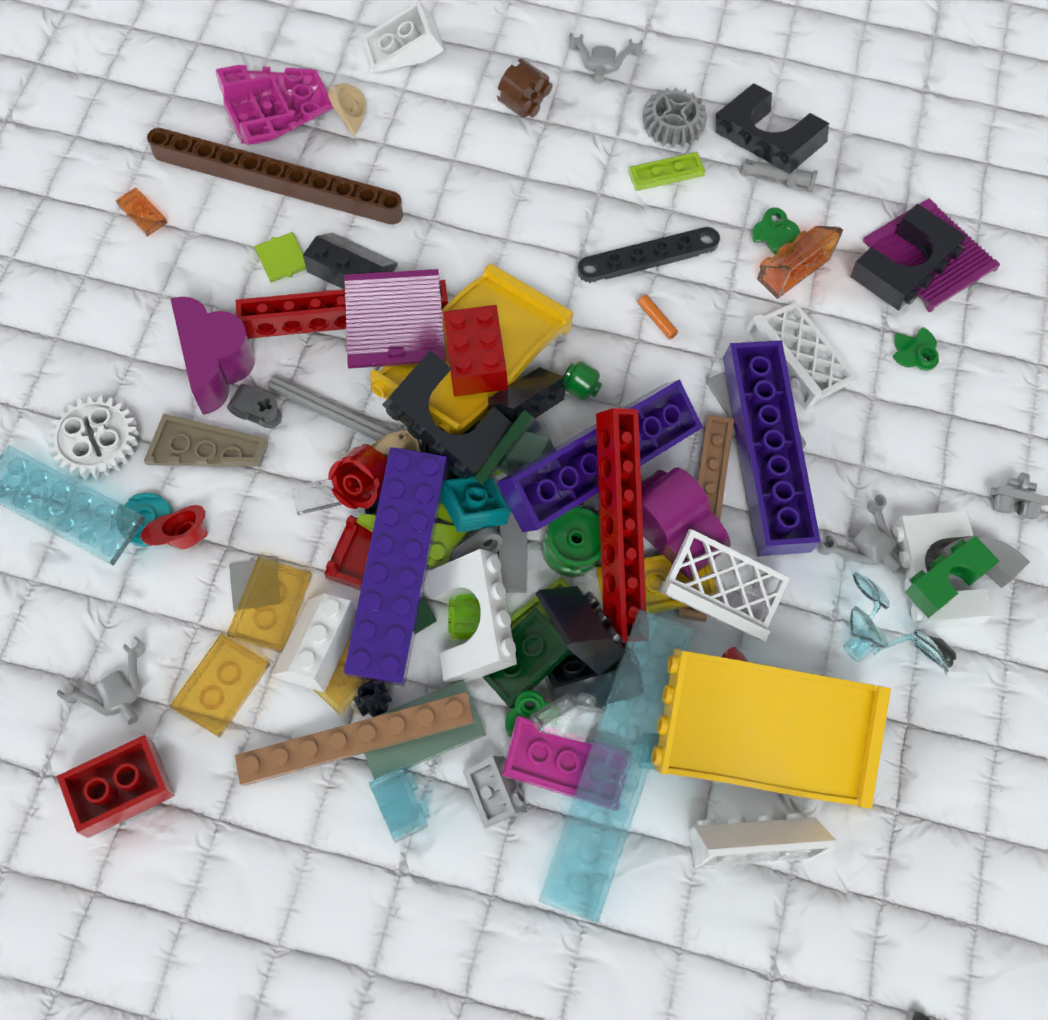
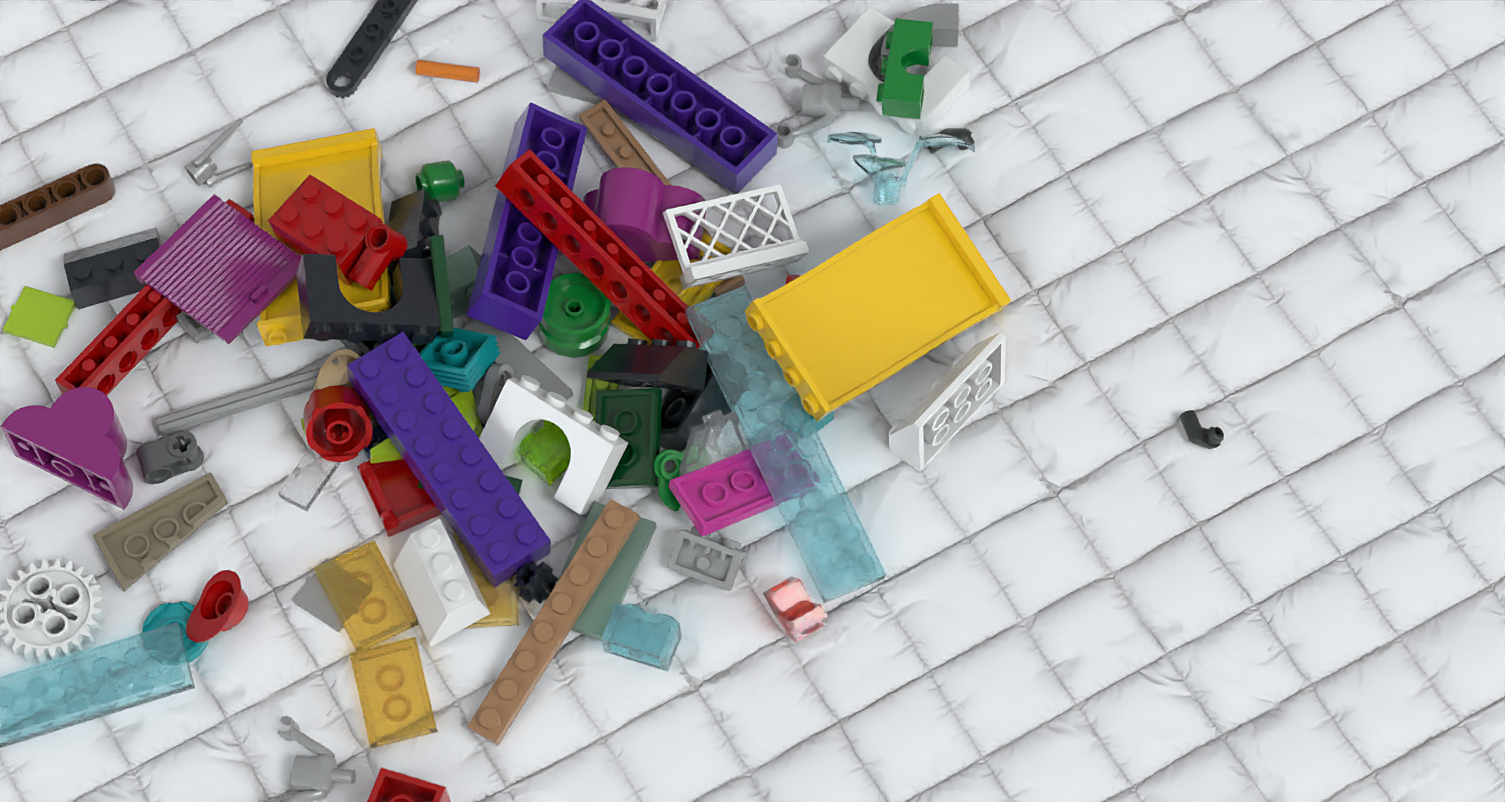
camera: 35 degrees left, 5 degrees down
(457, 249) = (203, 167): none -> light grey plant
(490, 389) = (382, 247): none -> red piece
(512, 888) = (795, 608): none -> clear red brick

